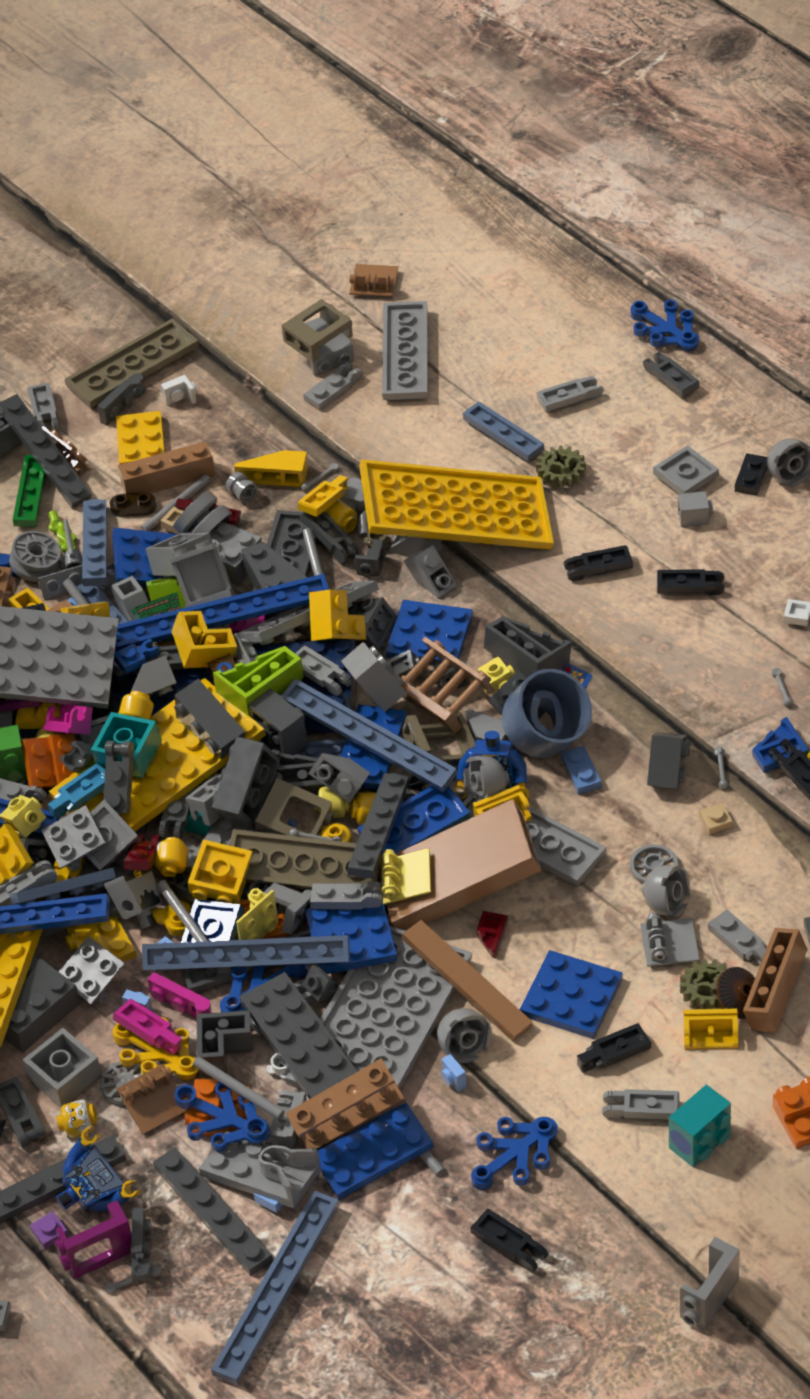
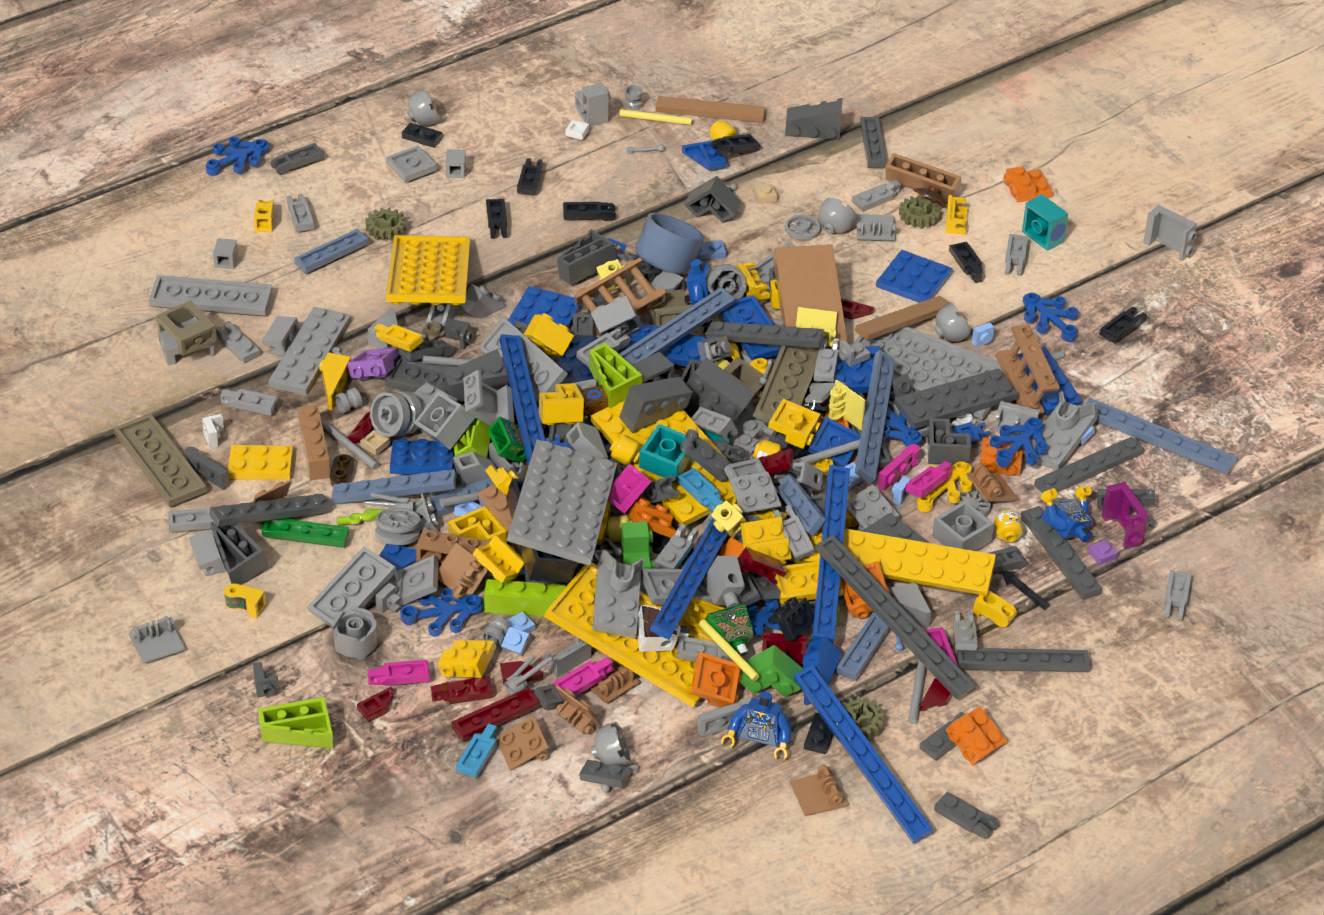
camera: 90 degrees left, 5 degrees down
(231, 413) = (250, 401): none -> light grey hinge
(238, 1087) = (999, 428): light grey bar -> none
(253, 1069) = (975, 432): none -> blue plate
(293, 489) = (373, 363): none -> medium lavender plate
(330, 444) = (312, 343): none -> light grey plate
(343, 417) = (281, 334): none -> light grey hinge
(361, 919) = (853, 353): none -> light grey bracket
(373, 280) = (110, 307): medium nougat hinge -> none
(478, 346) = (225, 253): none -> light grey brick
(557, 364) = (264, 216): none -> yellow leg
(631, 643) = (589, 211): none -> black hinge

